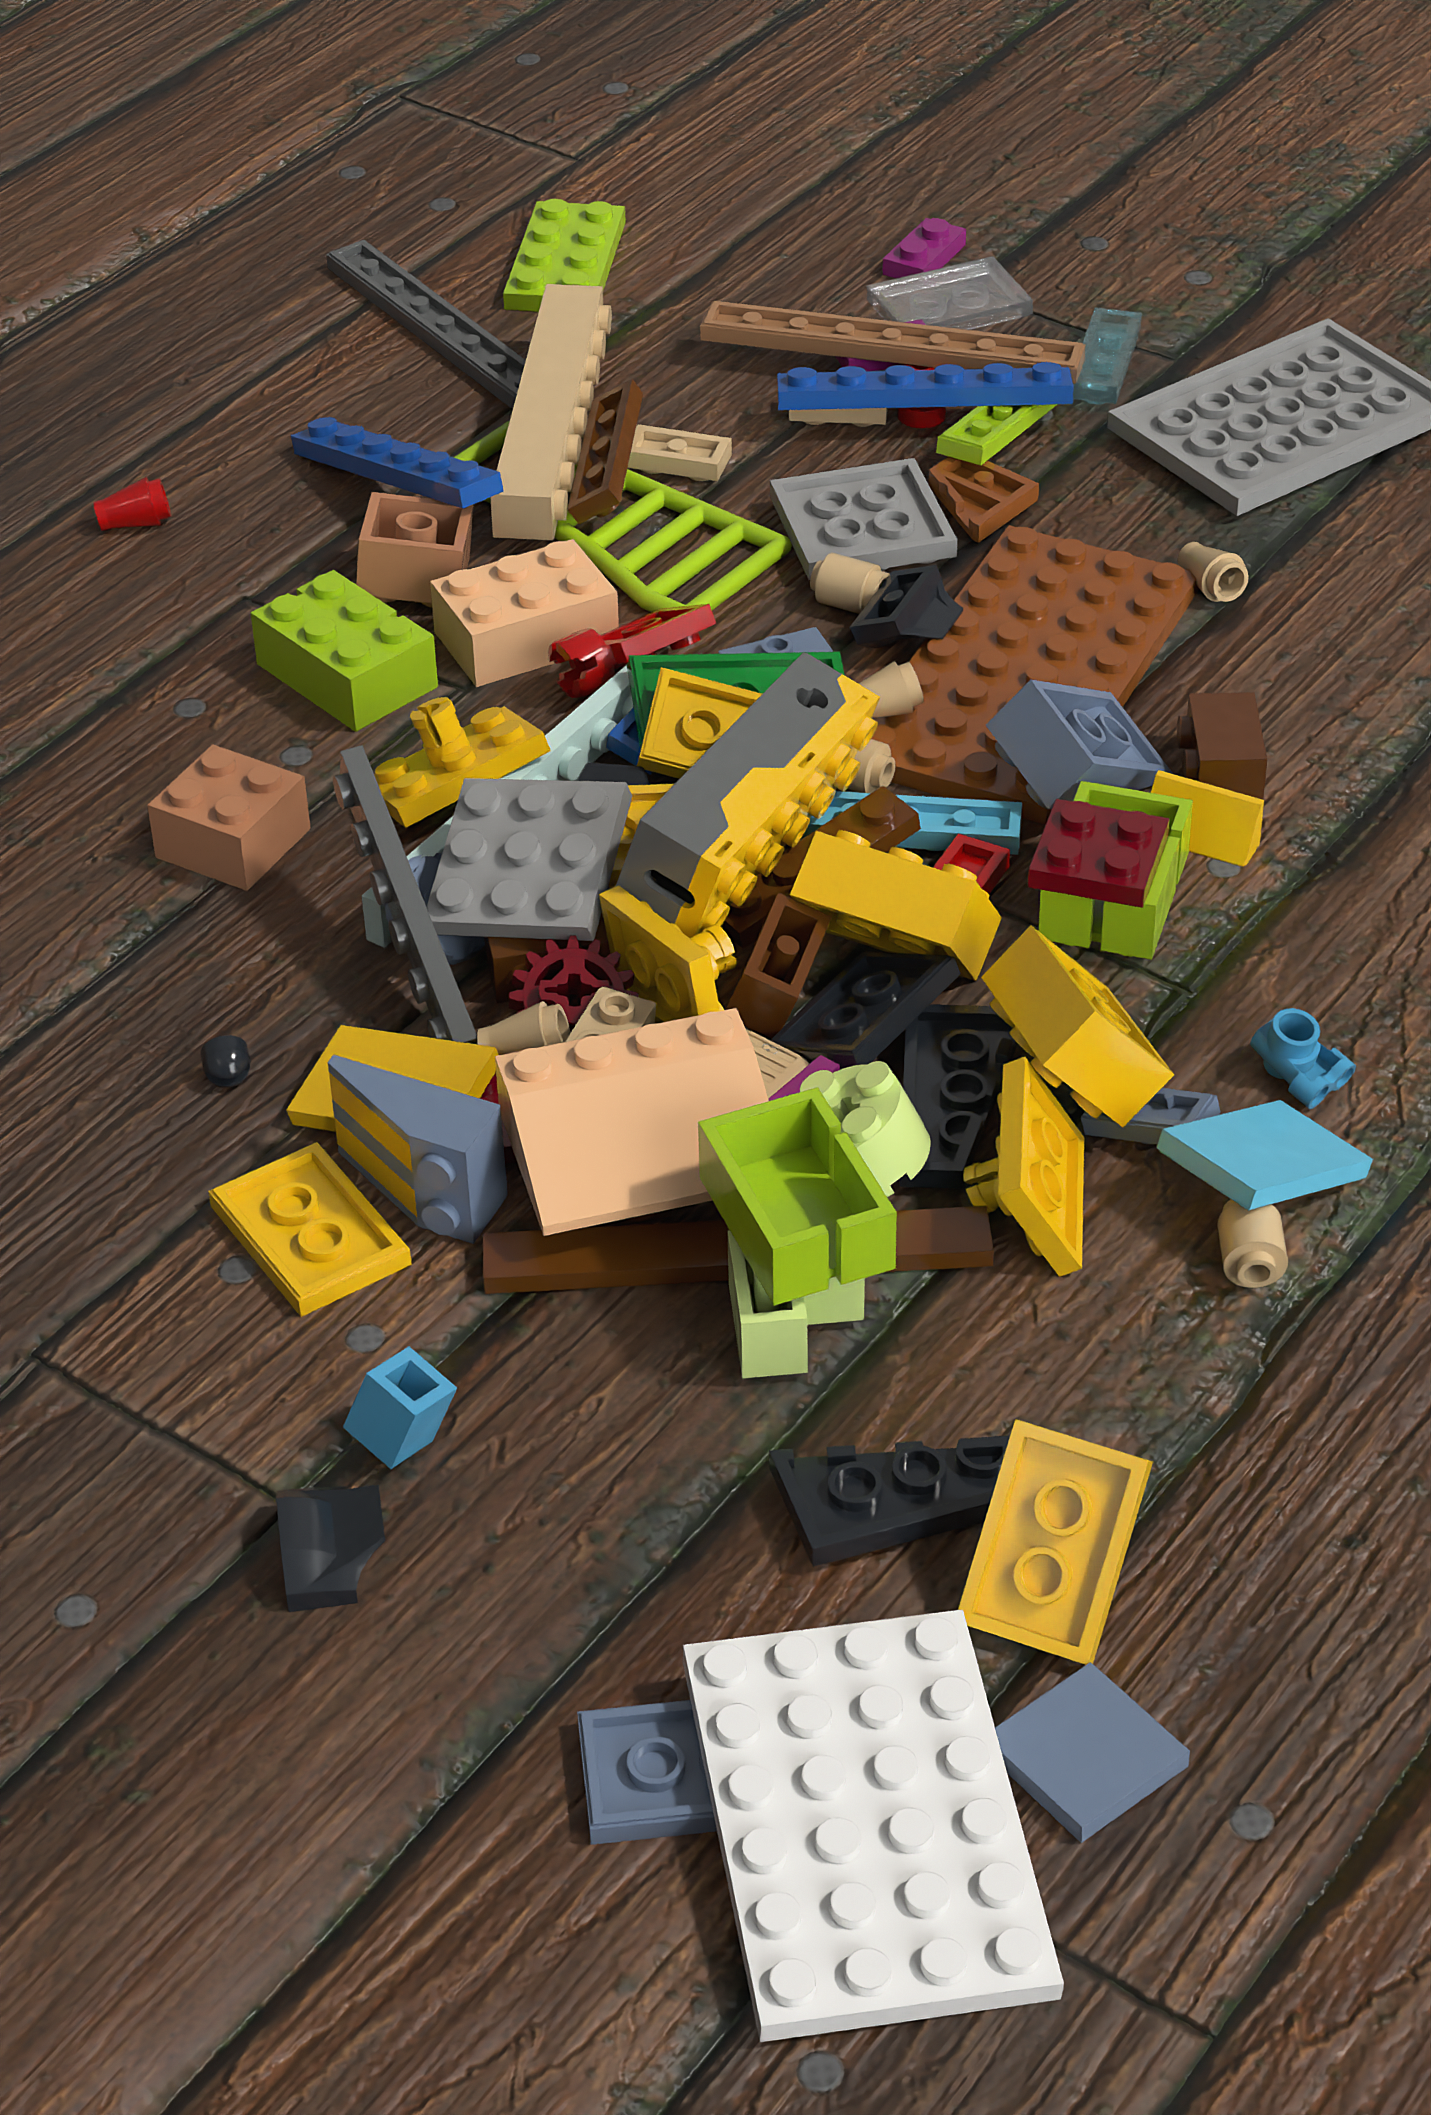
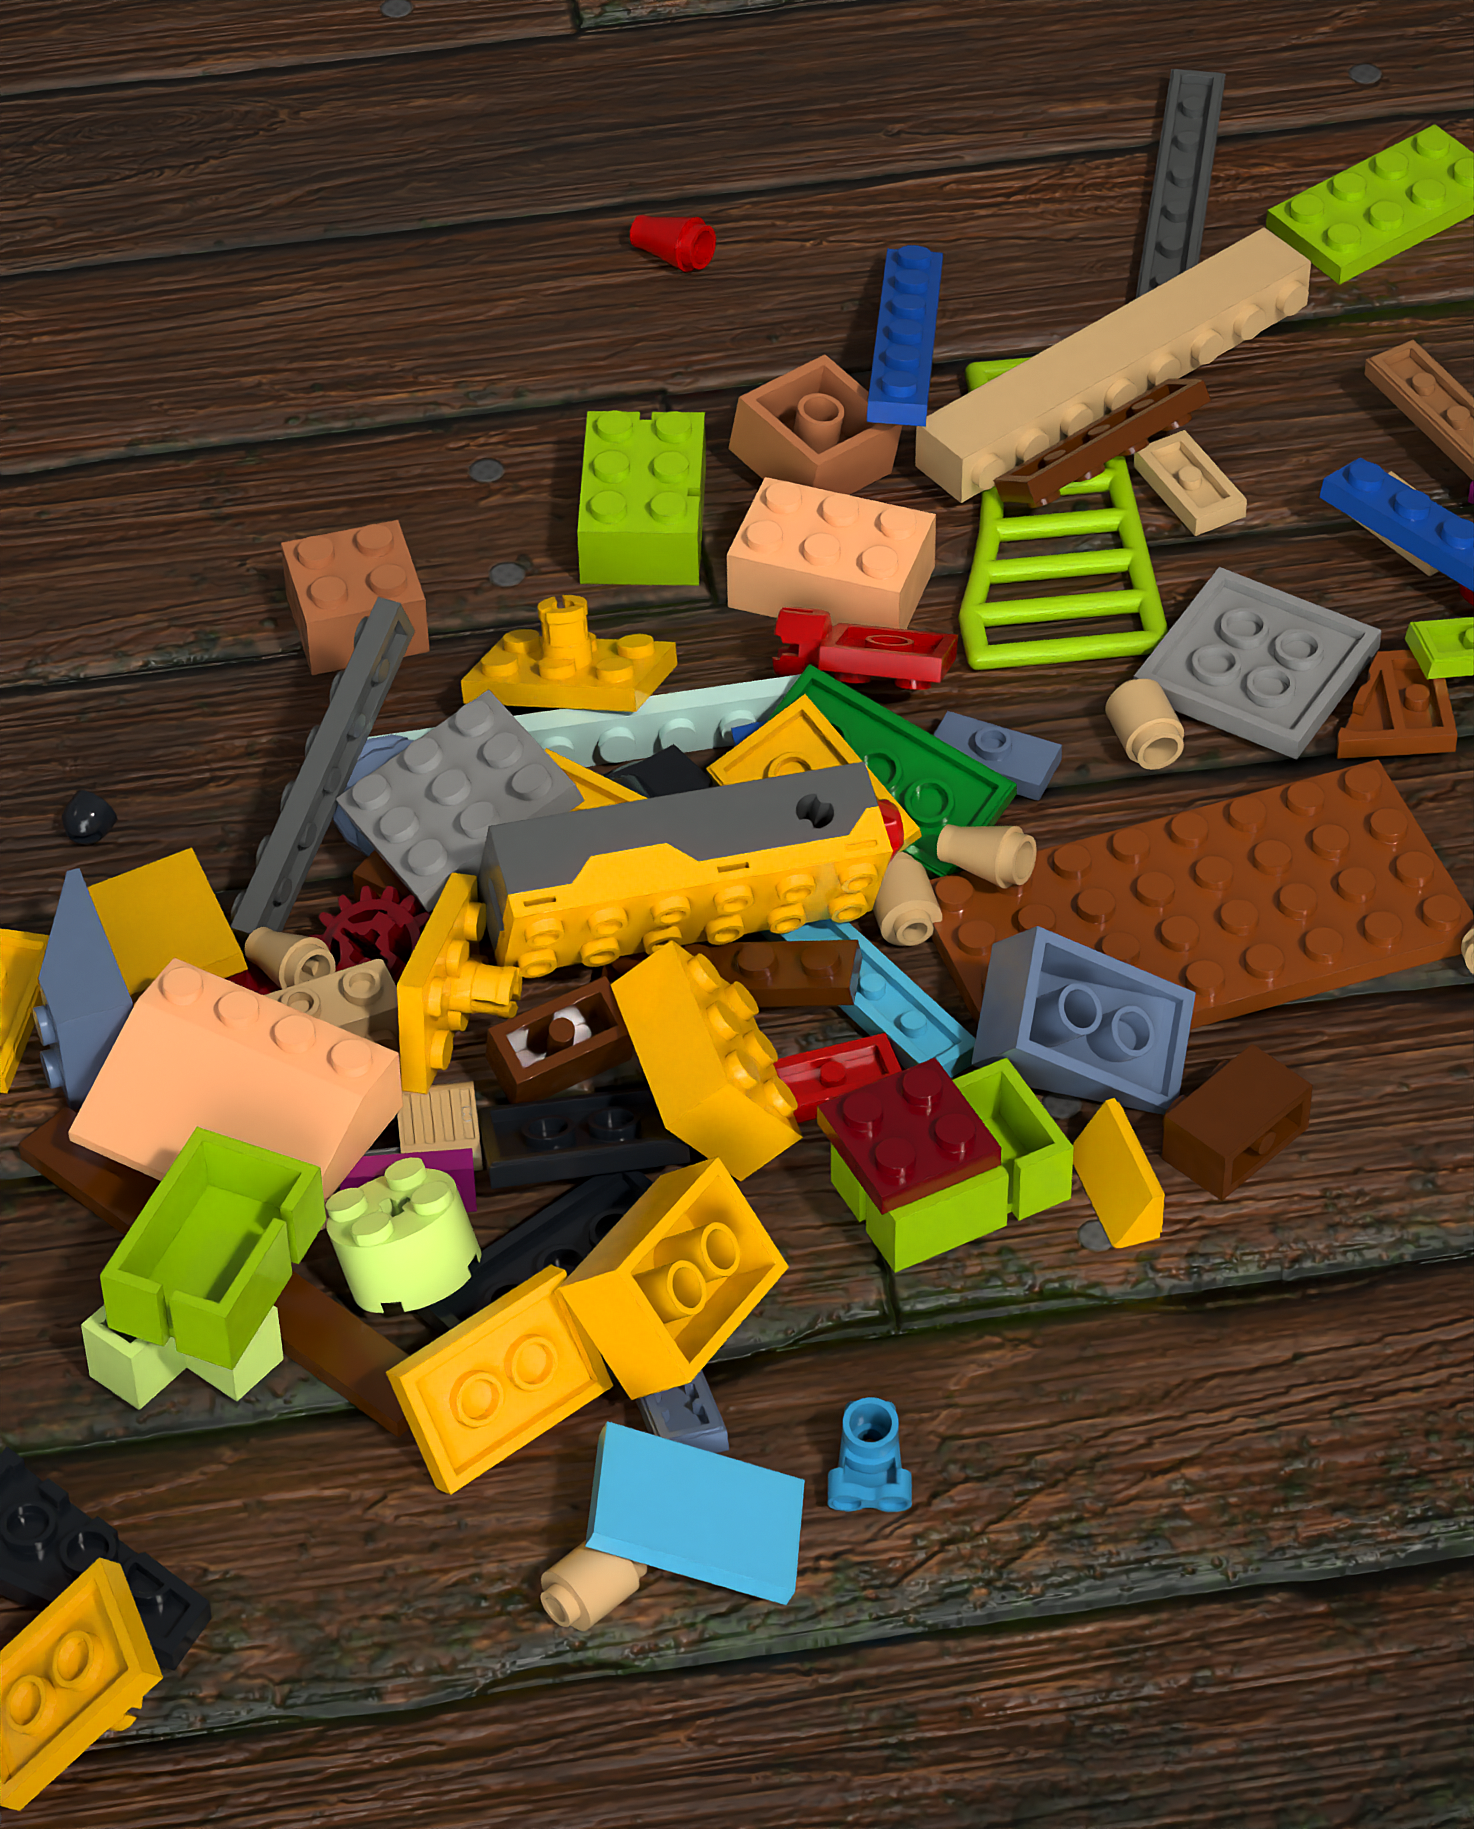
camera: 45 degrees right, 5 degrees up
(905, 607) = (1148, 784): black slope -> none

